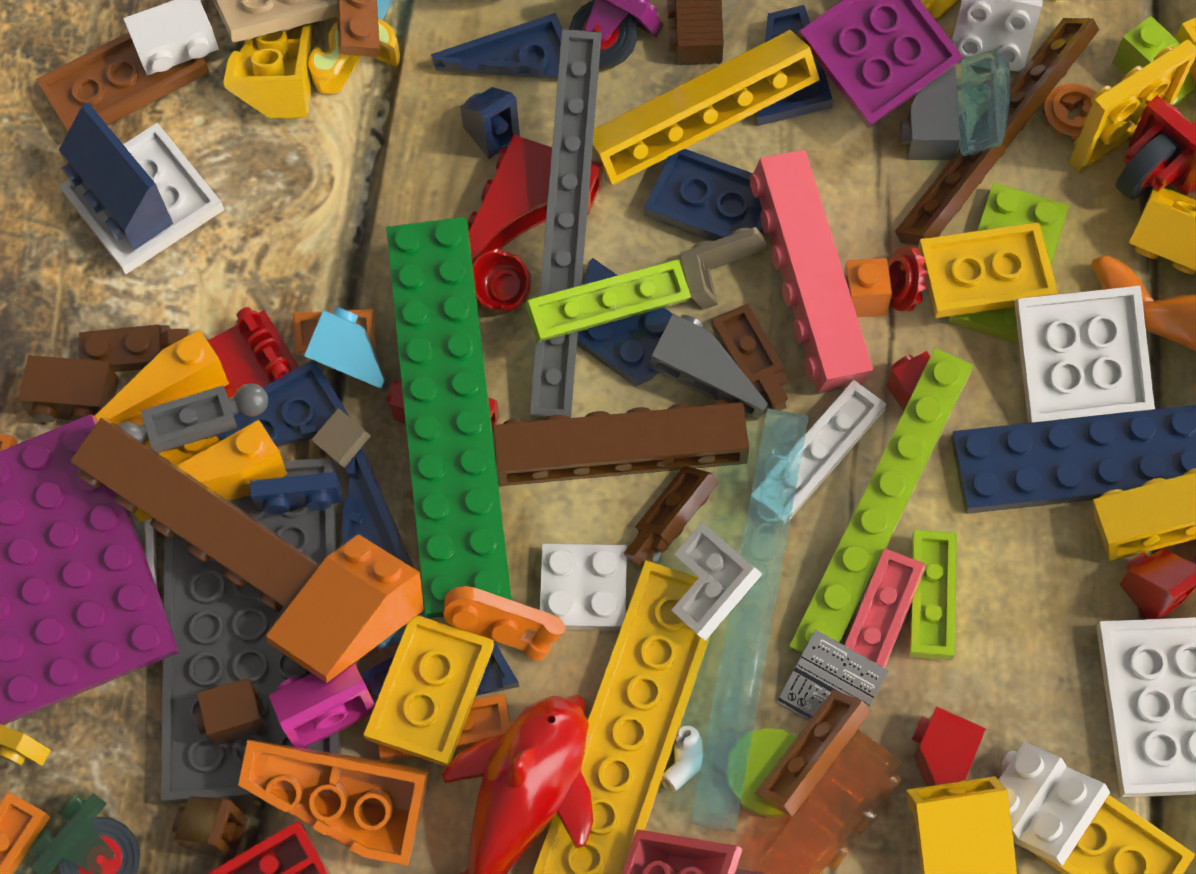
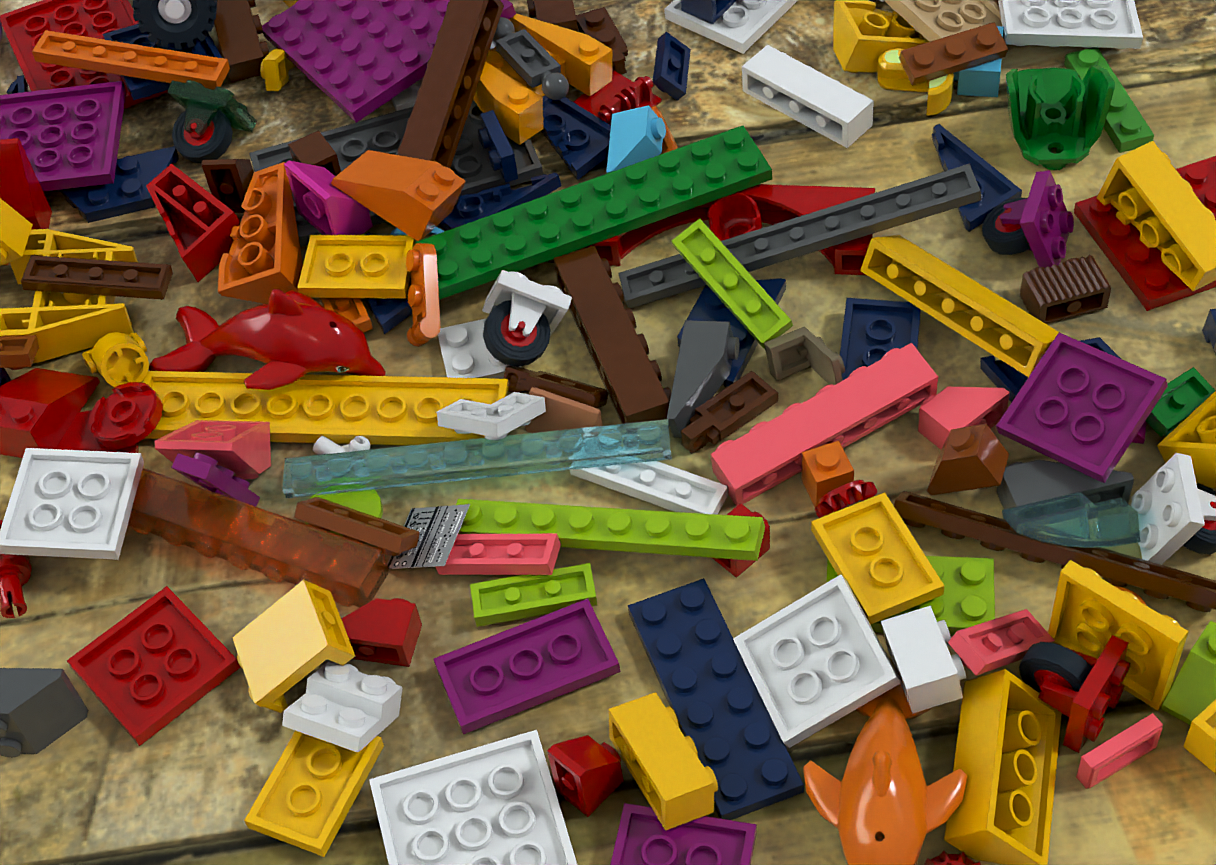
camera: 80 degrees right, 15 degrees down
(213, 282) = (671, 66): none -> dark blue plate
(330, 162) = (807, 96): none -> white brick
(341, 437) = (556, 162): dark tan tile -> none
(491, 119) = (886, 168): dark blue slope -> none
(591, 524) = (521, 318): none -> plate
(721, 510) = (562, 414): none -> nougat slope
(830, 155) = (960, 408): none -> coral slope
(895, 167) = (968, 461): none -> dark orange slope
(1017, 619) = (526, 666): none -> magenta plate
(1106, 198) = (998, 641): none -> coral plate
(1115, 260) = (923, 659): none -> white brick

